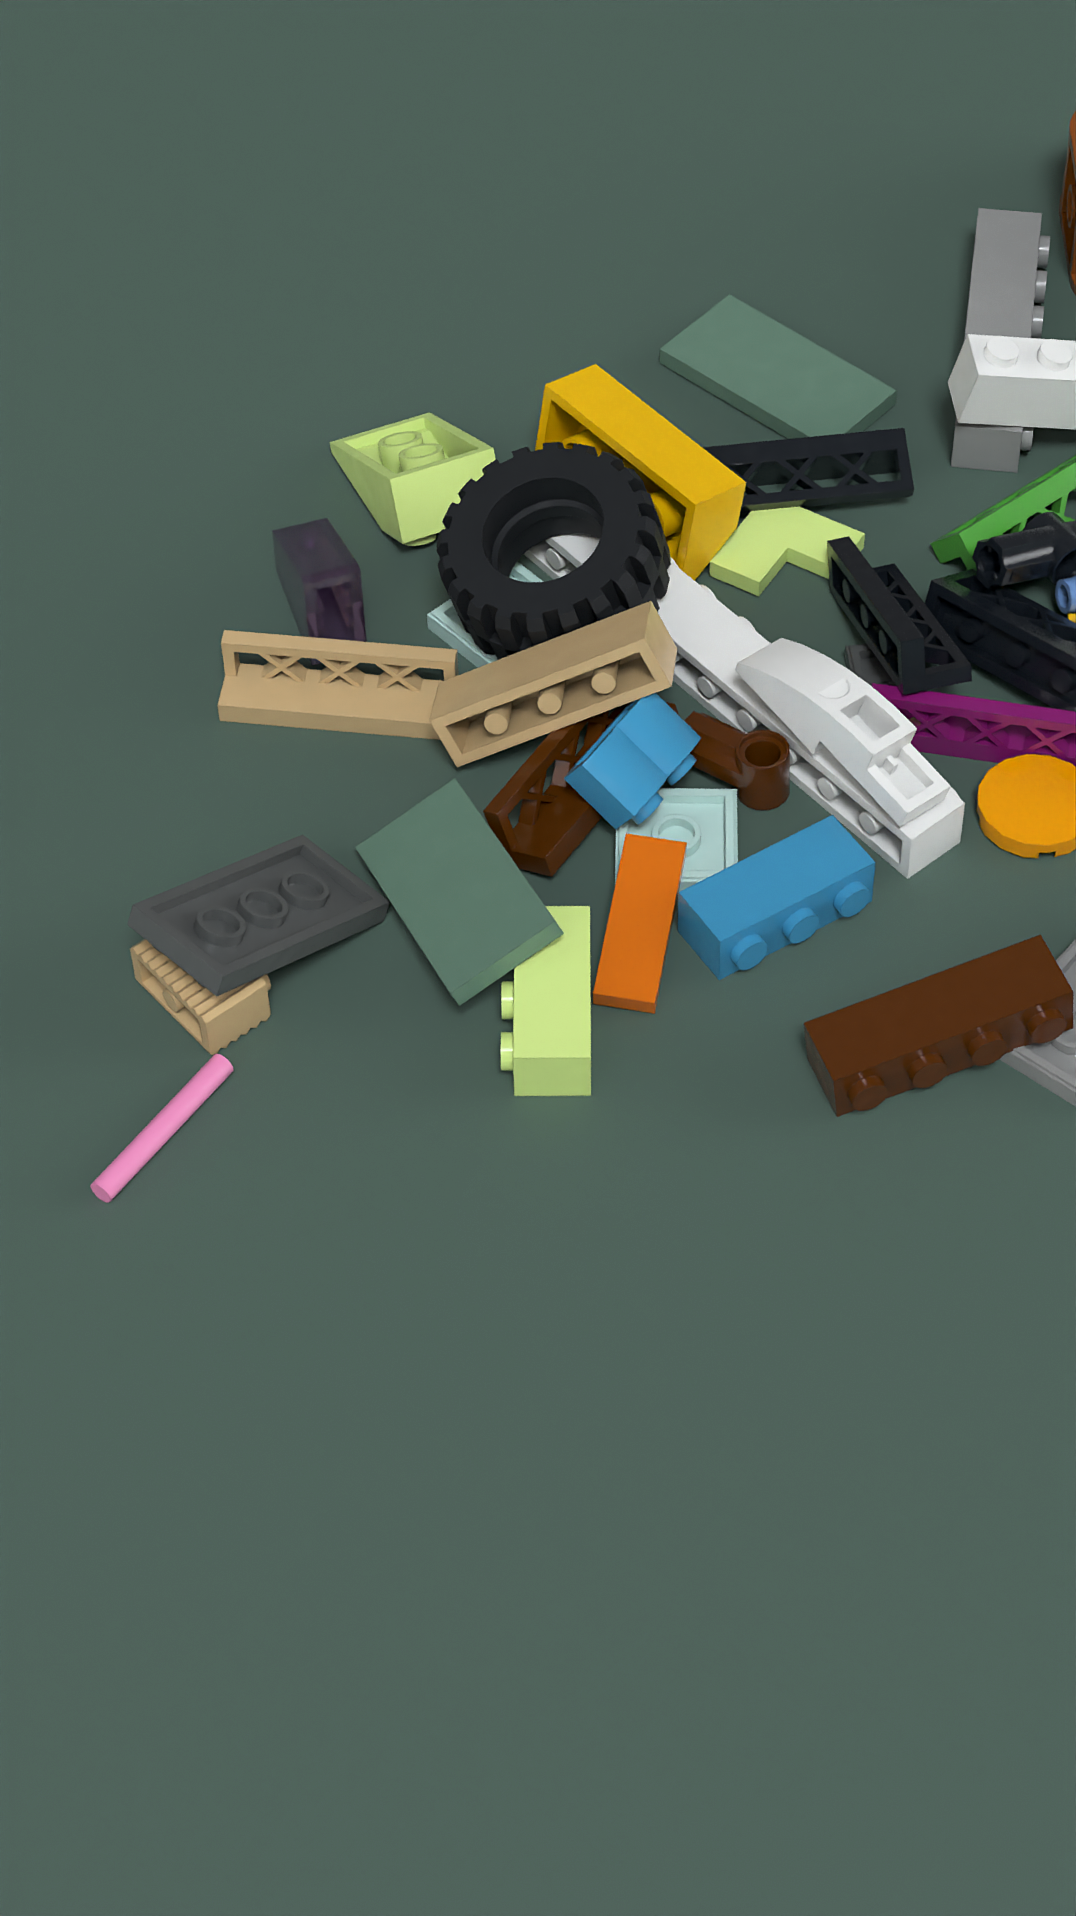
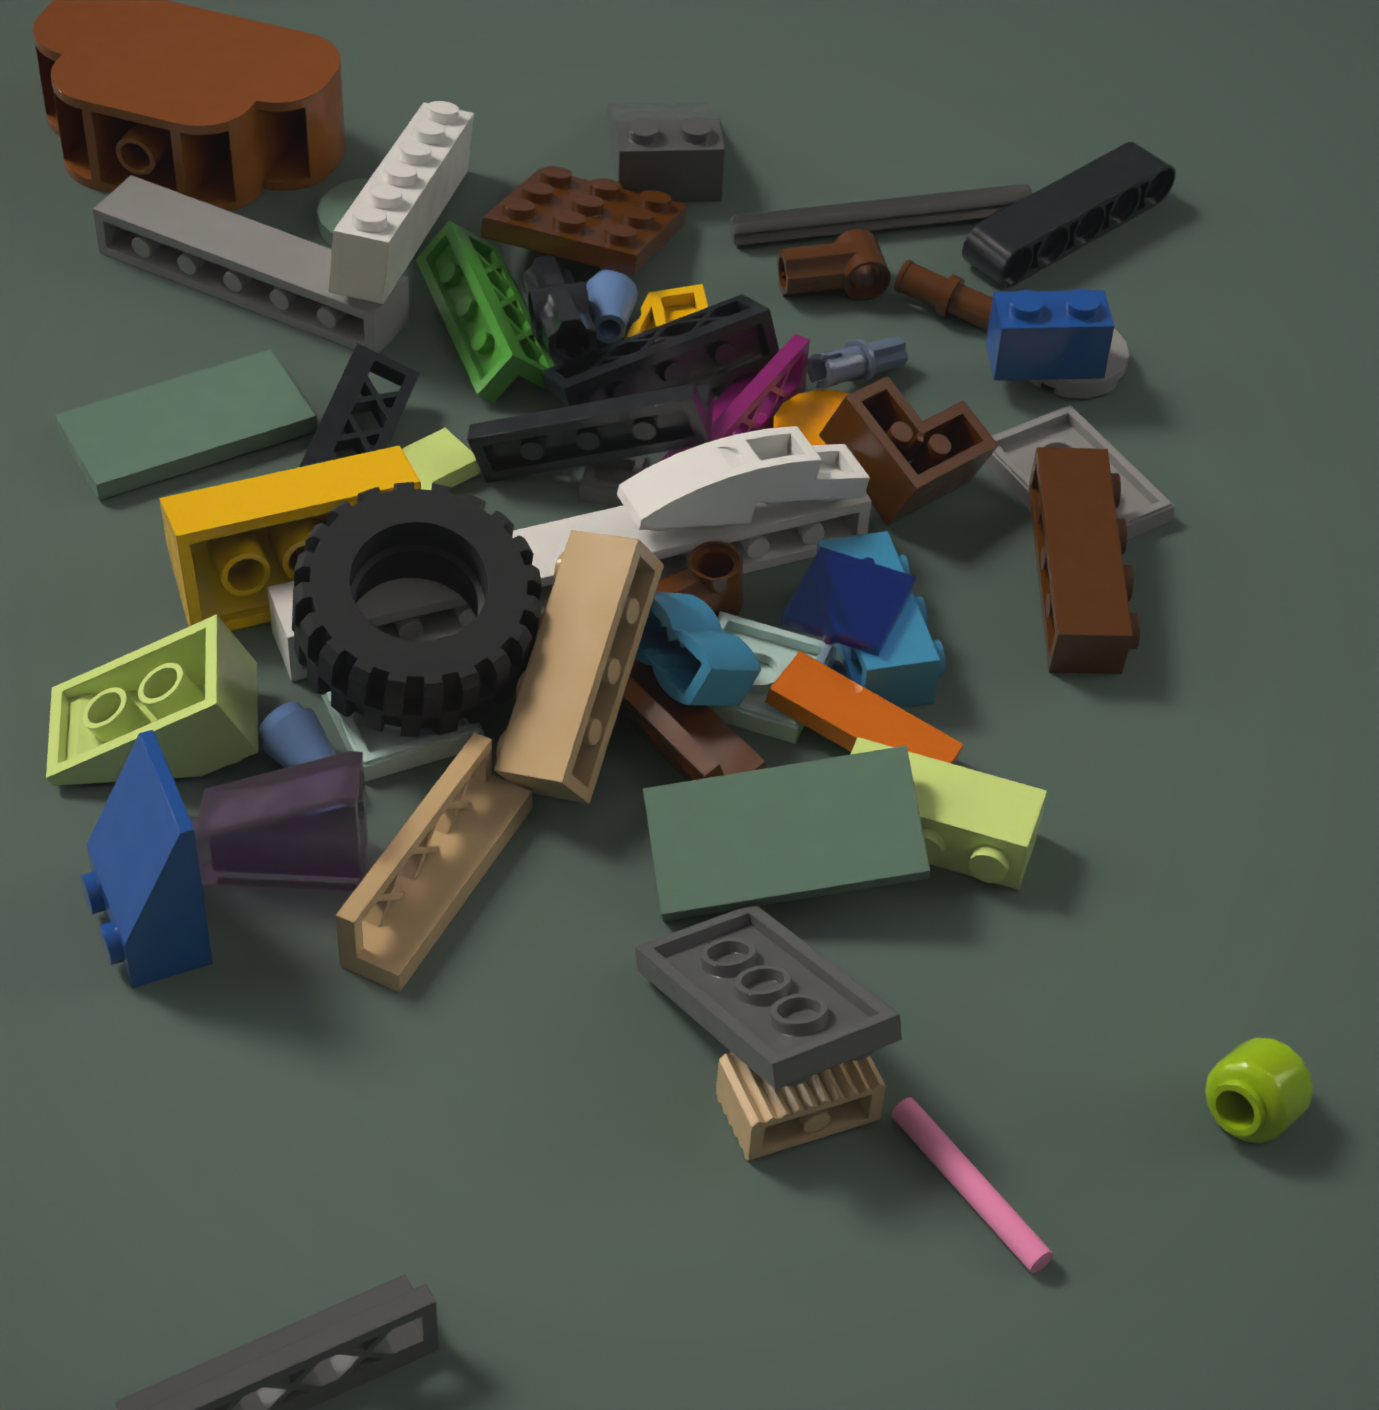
camera: 75 degrees left, 5 degrees down
(223, 516) = (147, 873): none -> blue slope
(326, 1301) = (1259, 1090): none -> lime head
(419, 576) = (294, 735): none -> medium blue cone
(756, 854) = (849, 601): none -> clear blue piece
(991, 856) = (908, 457): none -> reddish brown brick

